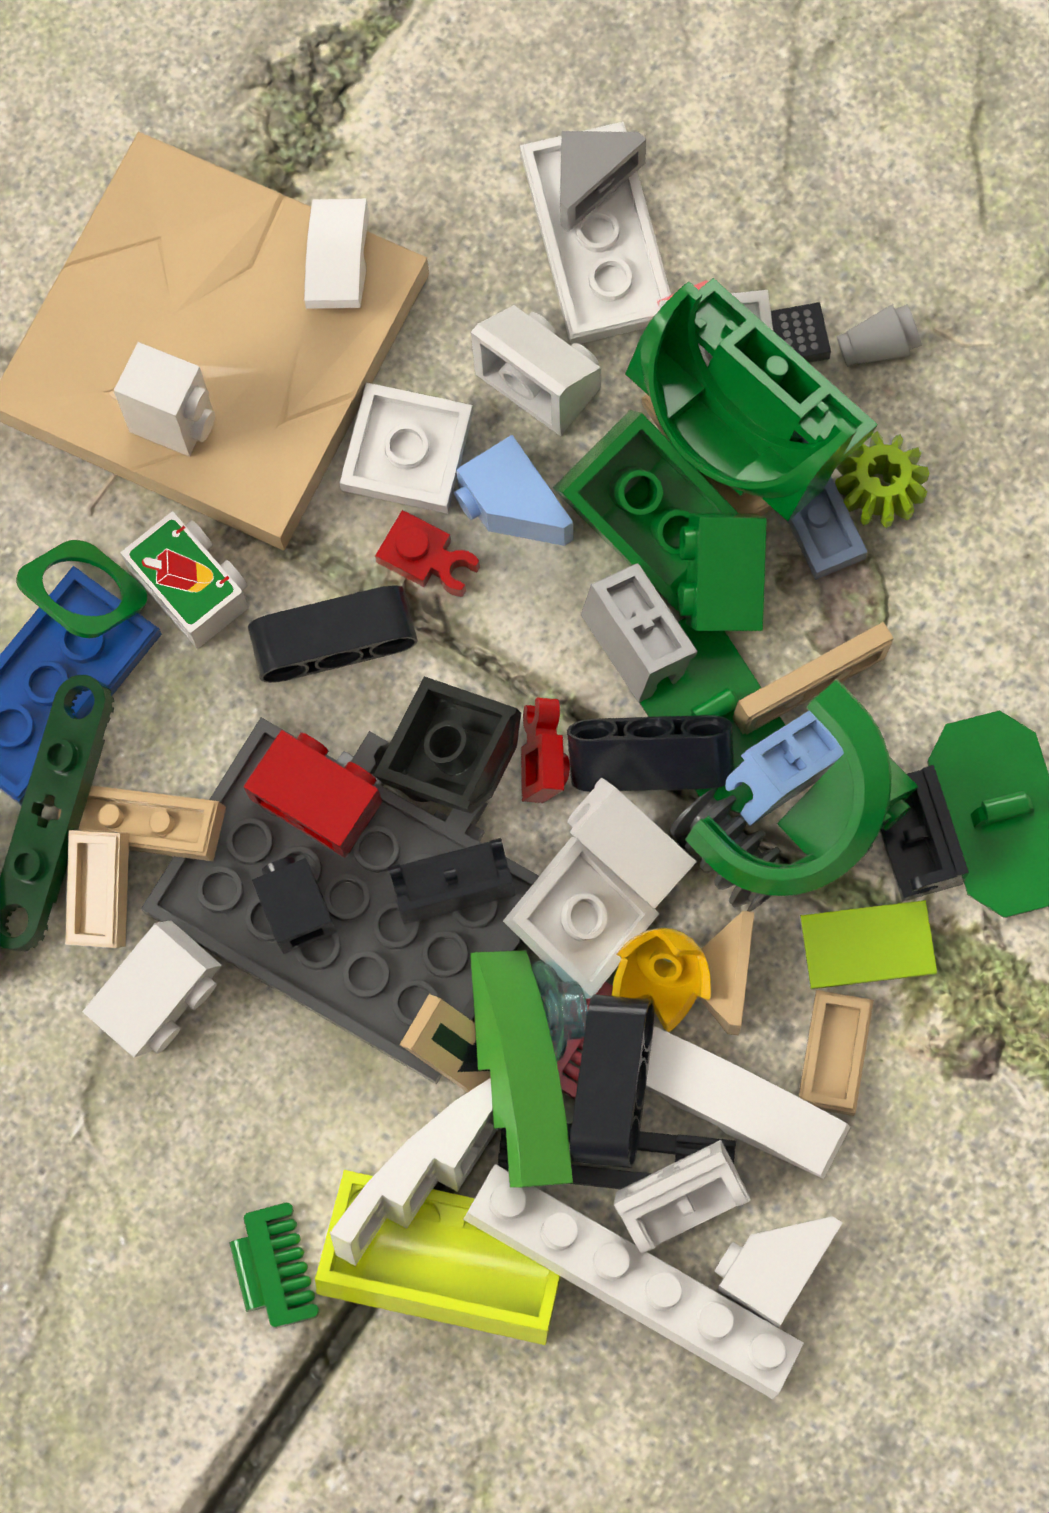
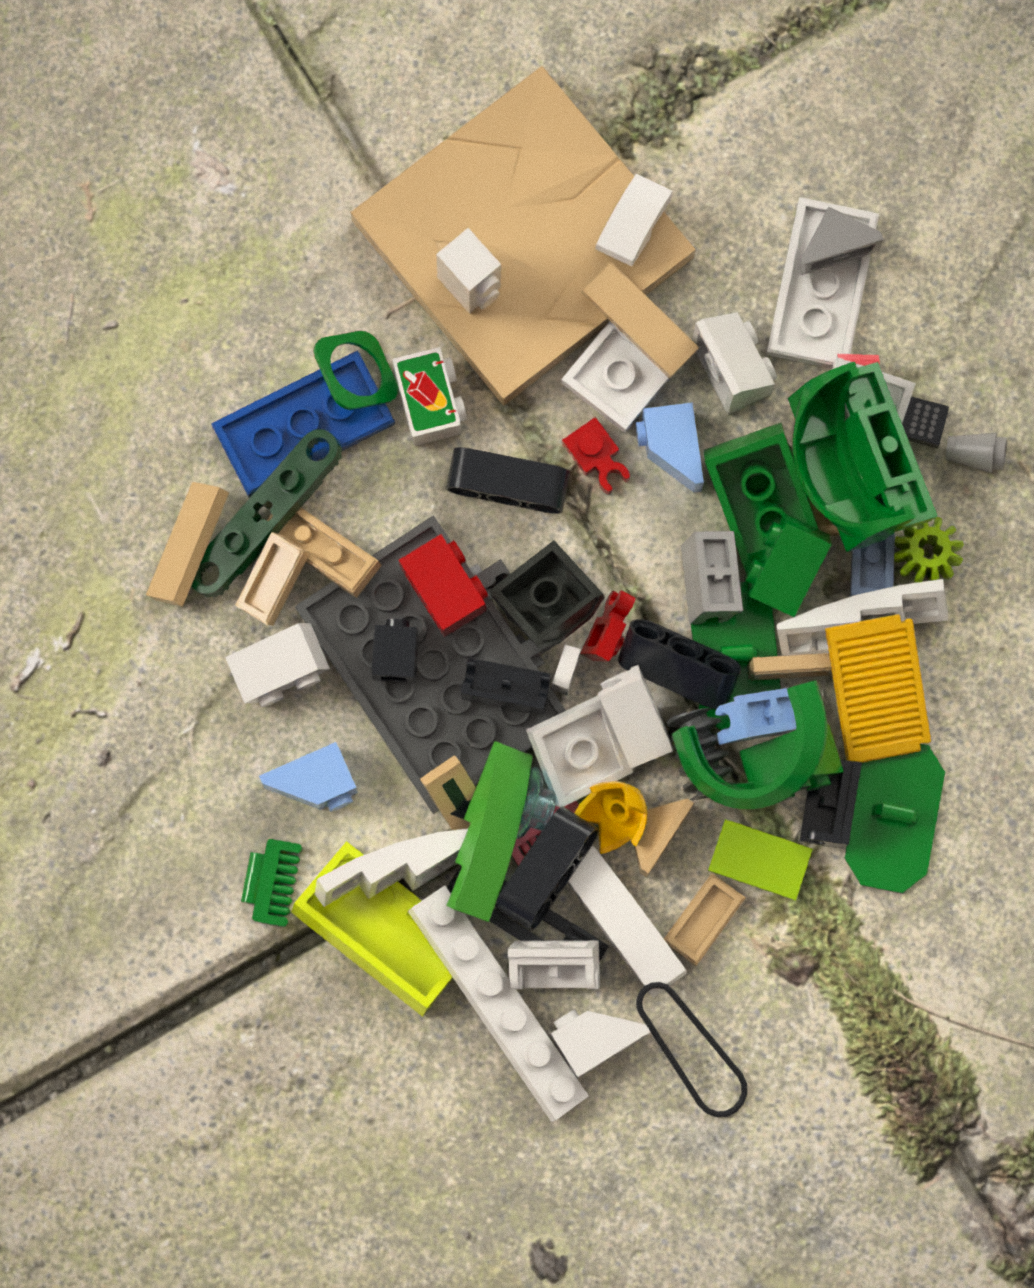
camera: 20 degrees right, 5 degrees up
(267, 1112) = (315, 779): none -> light blue slope
(401, 367) = (640, 320): none -> tan tile
(515, 826) = (566, 669): none -> white tile
(846, 592) = (918, 601): none -> white slope
(907, 666) = (878, 688): none -> yellow window
(964, 1288) = (672, 1060): none -> black piece

